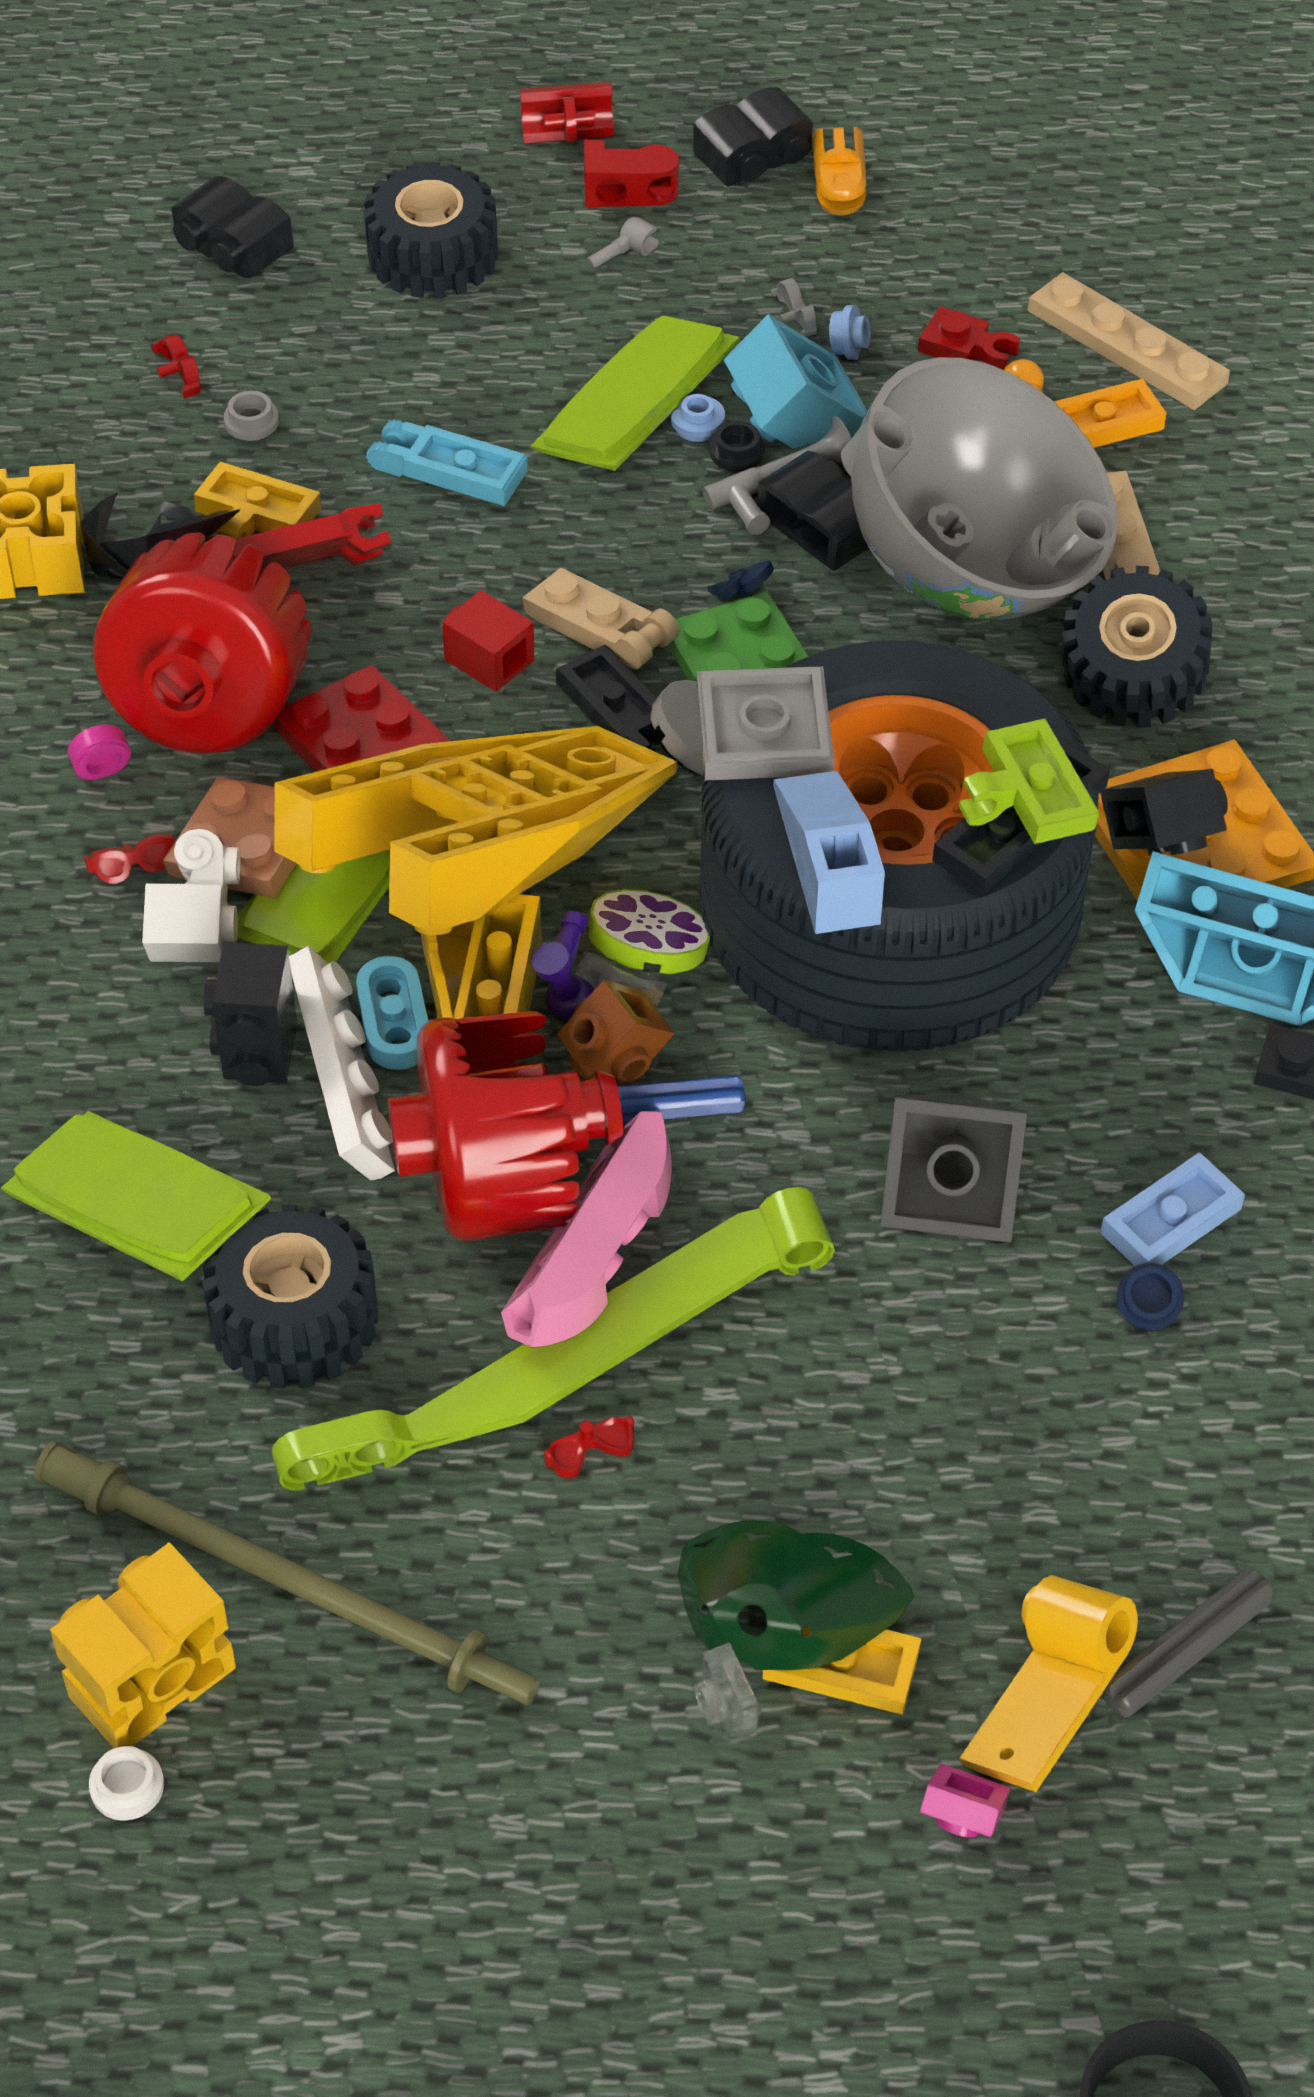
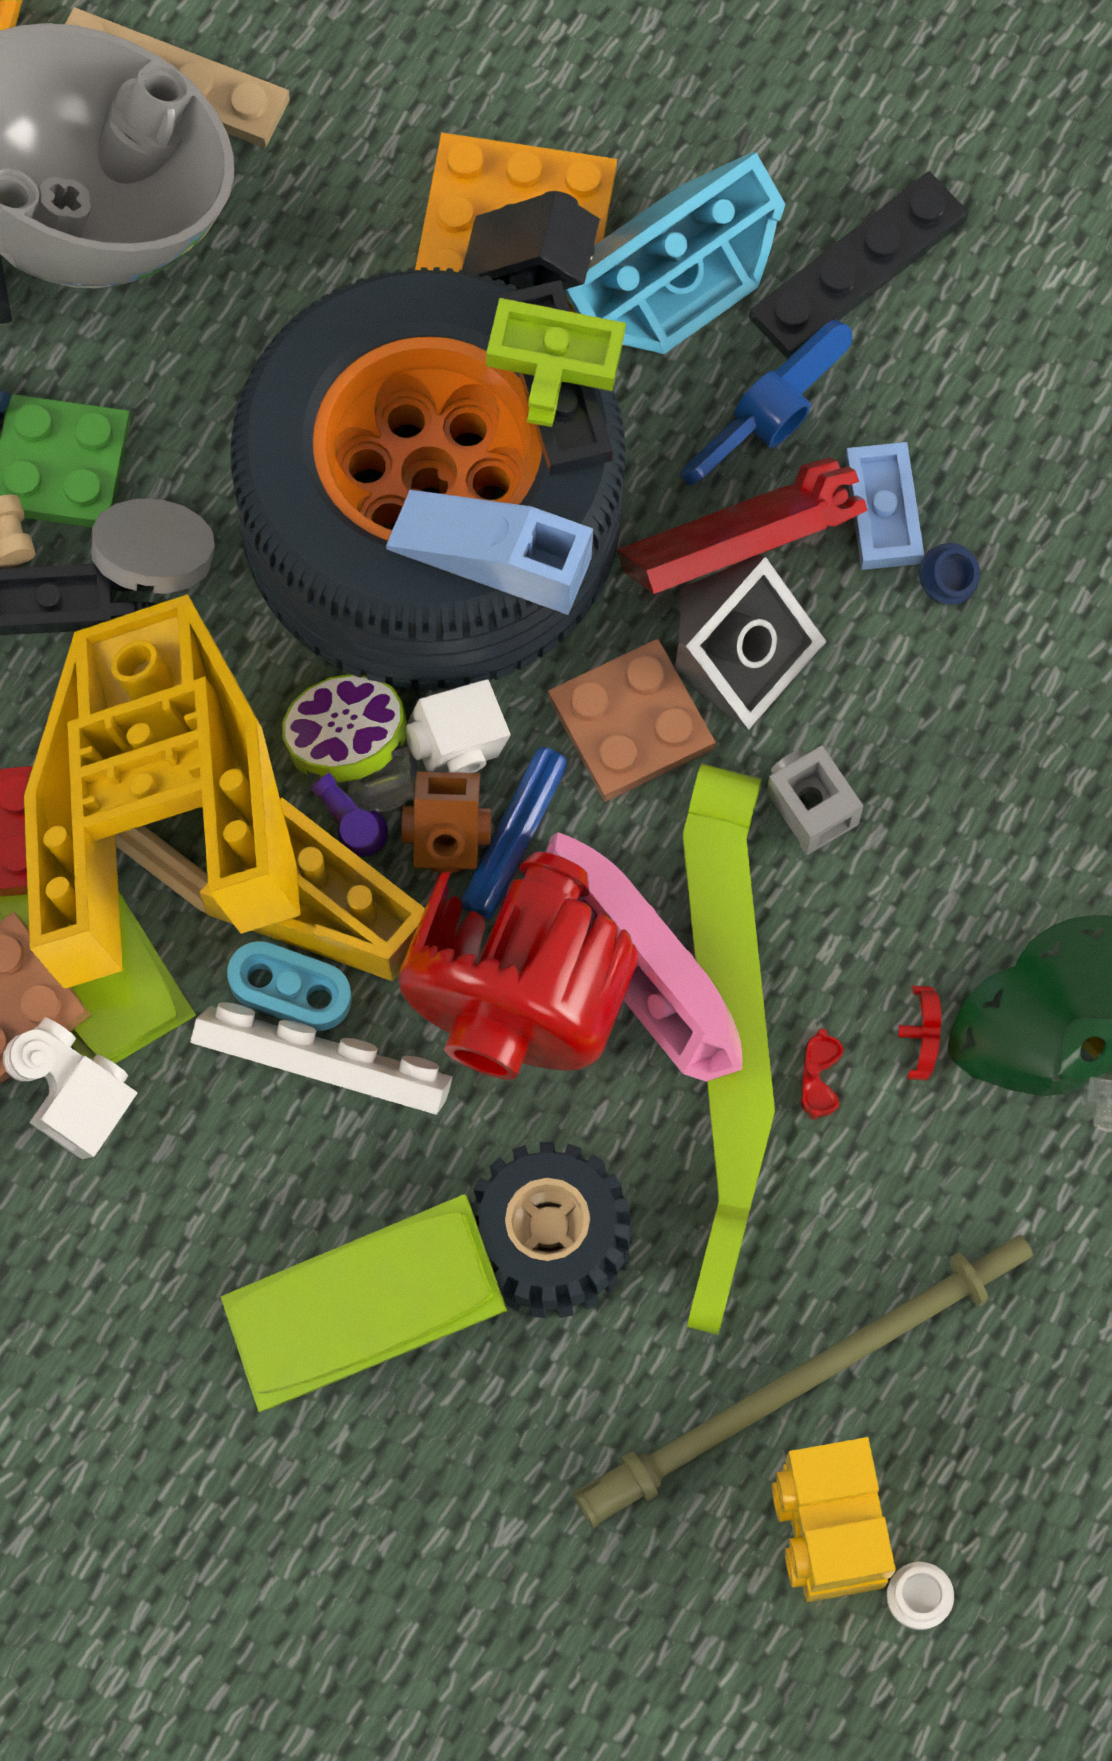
camera: 60 degrees left, 20 degrees up
(252, 1013) = (243, 1105): black brick -> none
(687, 1512) = (928, 1032): none -> red piece
(705, 1001) = (457, 729): none -> white brick
(764, 723) = (308, 513): light grey tile -> none
(817, 1134) = (631, 720): none -> nougat plate
(844, 1296) = (818, 775): none -> light grey brick
(1115, 1141) = (745, 528): none -> red tile
(1137, 646) = (307, 142): black wheel -> none
(1196, 1078) = (775, 402): none -> blue piece

